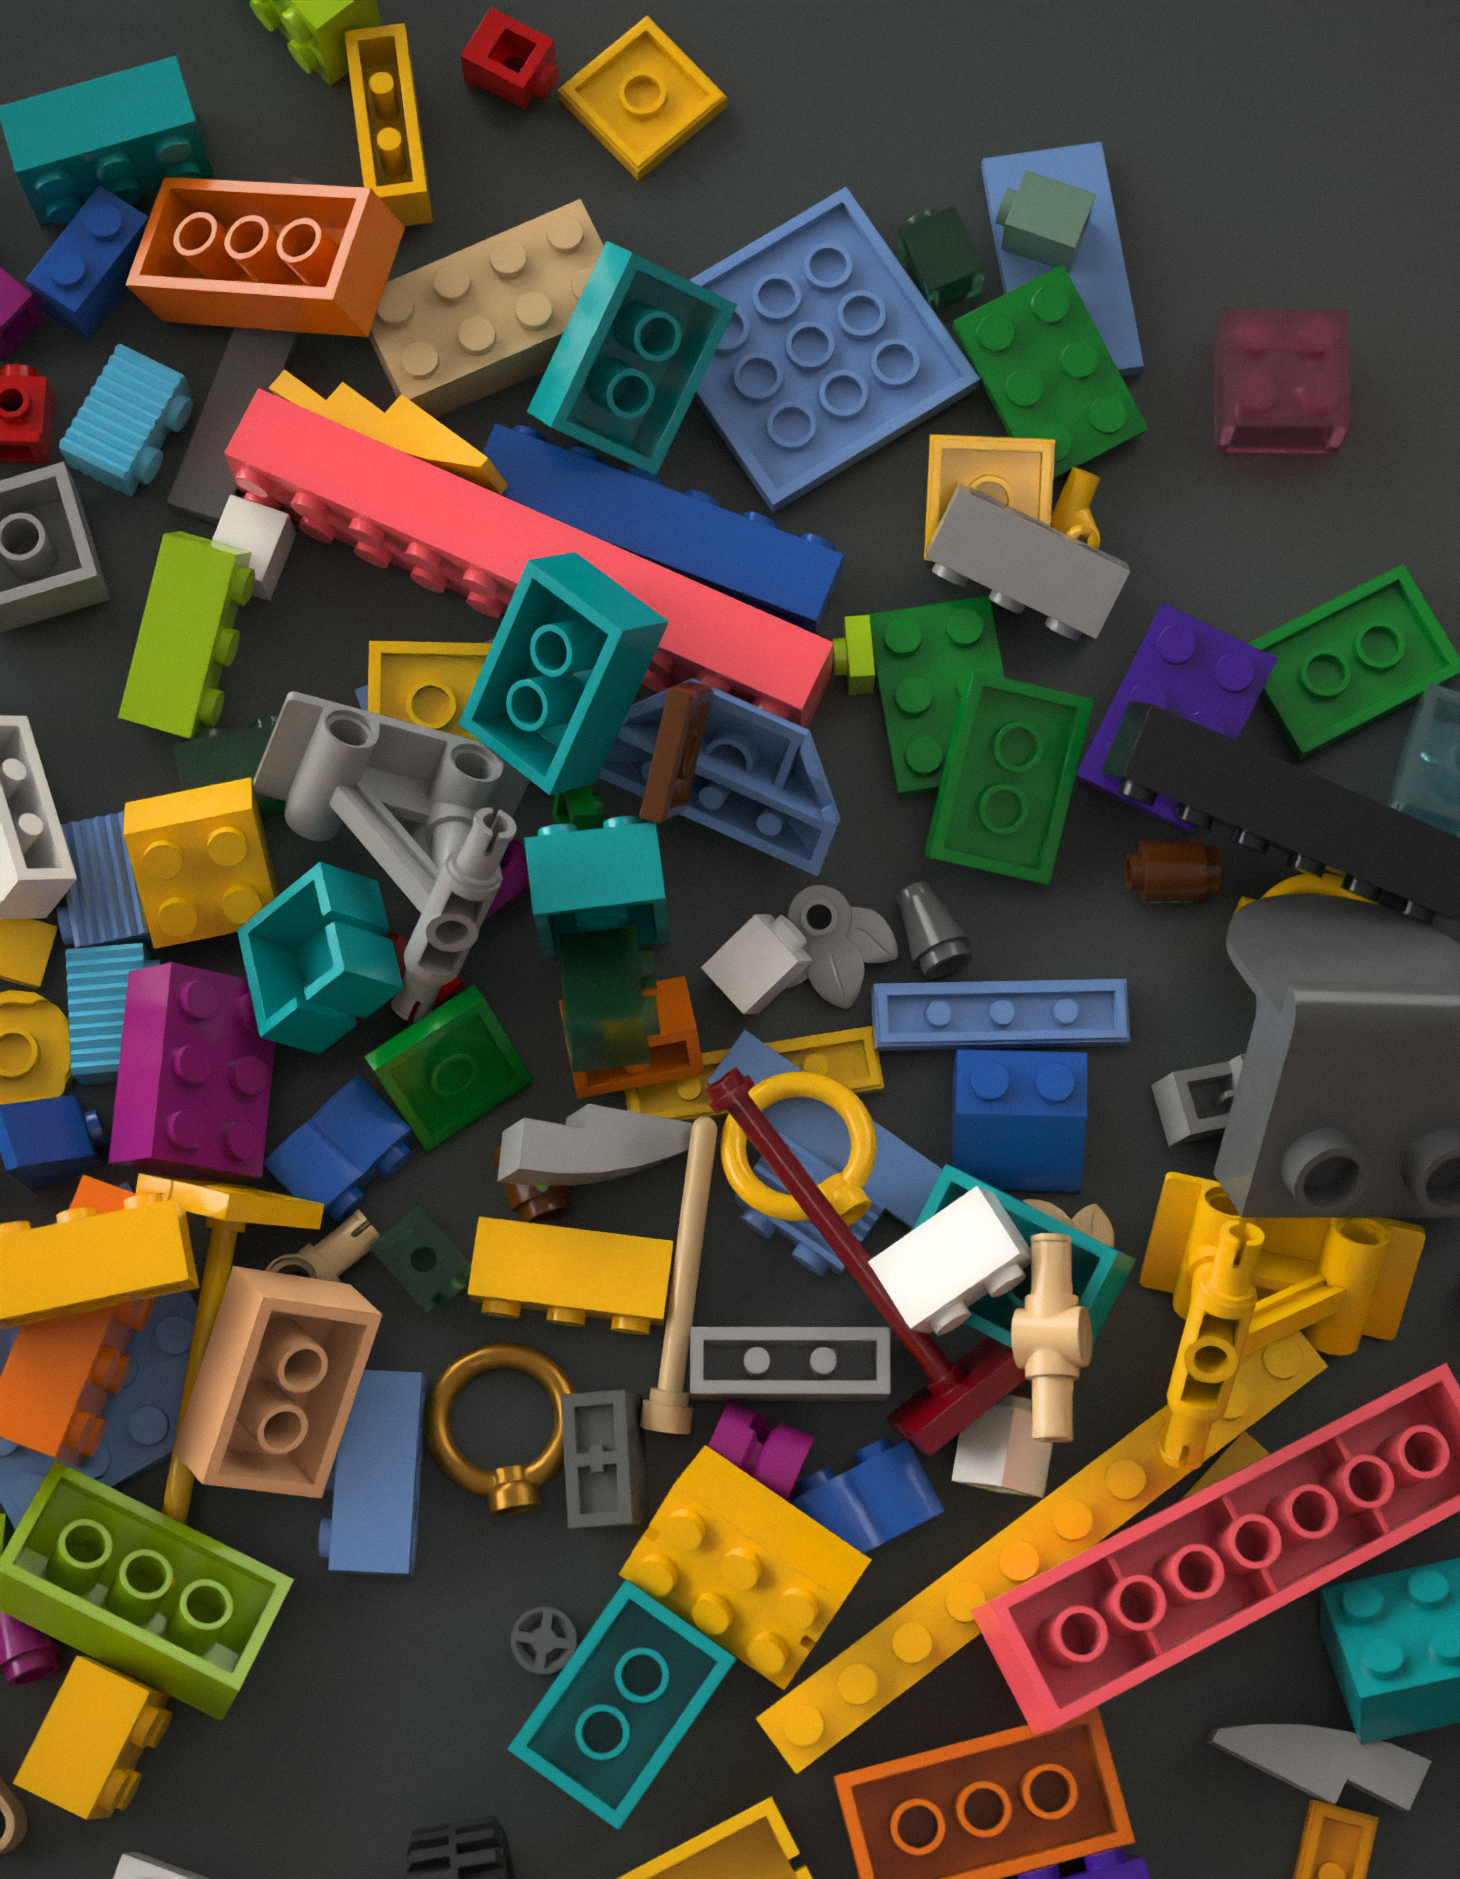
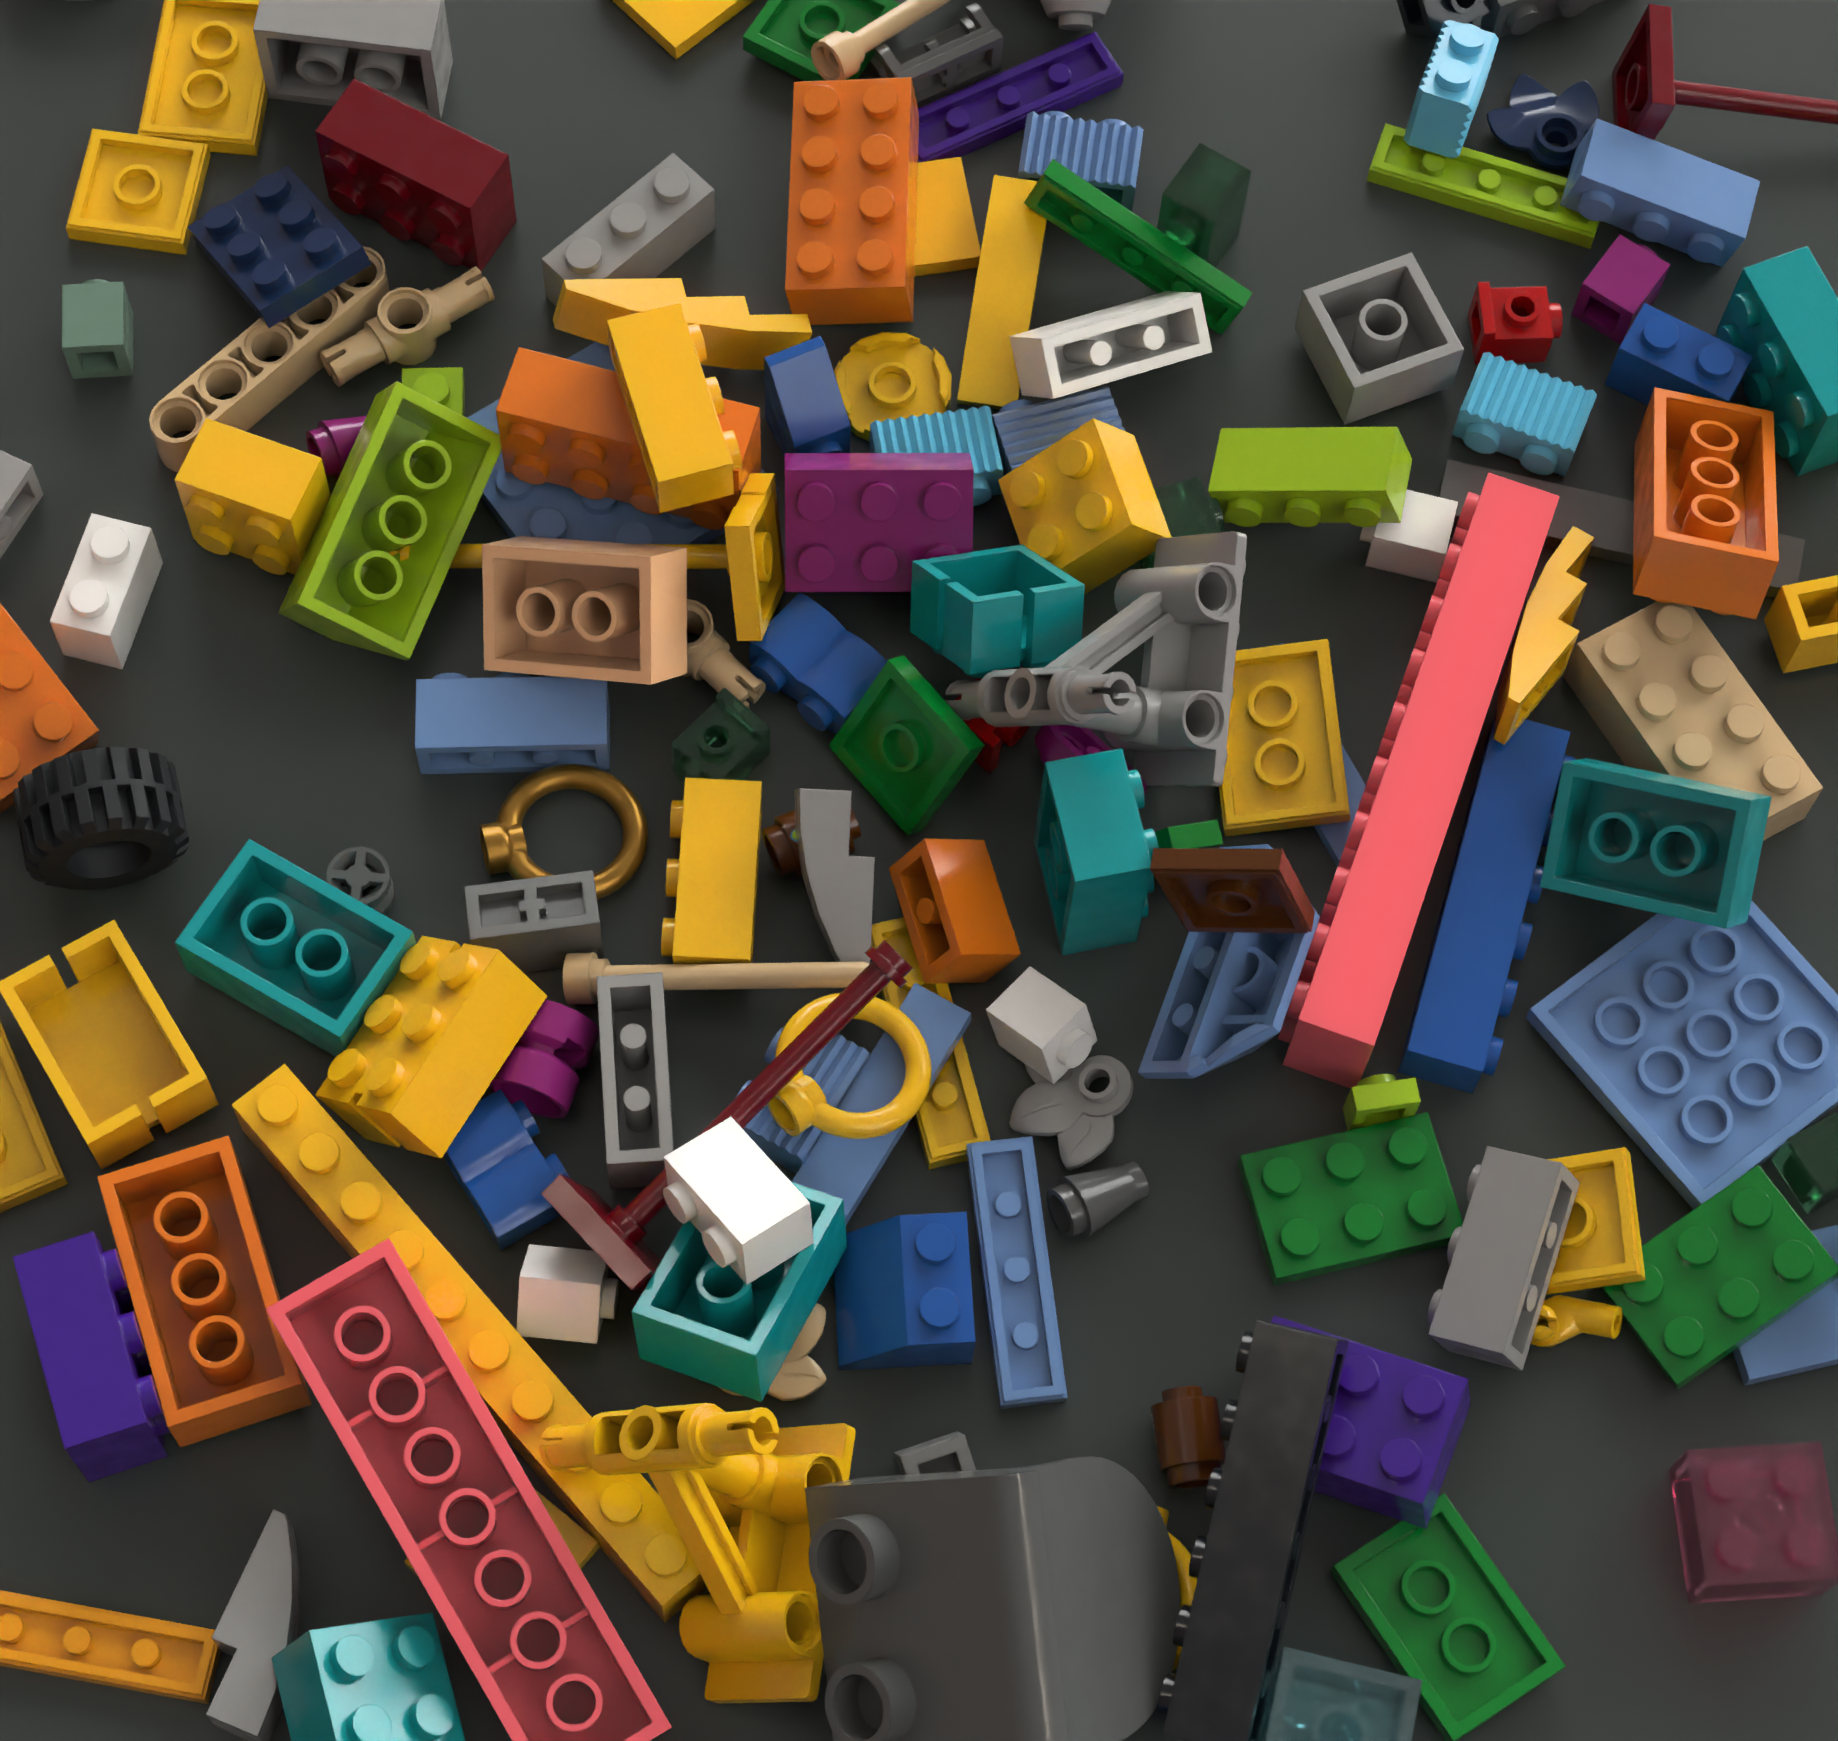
camera: 80 degrees right, 10 degrees down
(562, 672) = (1303, 783): teal brick -> none
(606, 999) = (981, 865): clear green brick -> none
(1008, 777) = (1265, 1253): green plate -> none
(1051, 1338) = (662, 1292): tan pin -> none

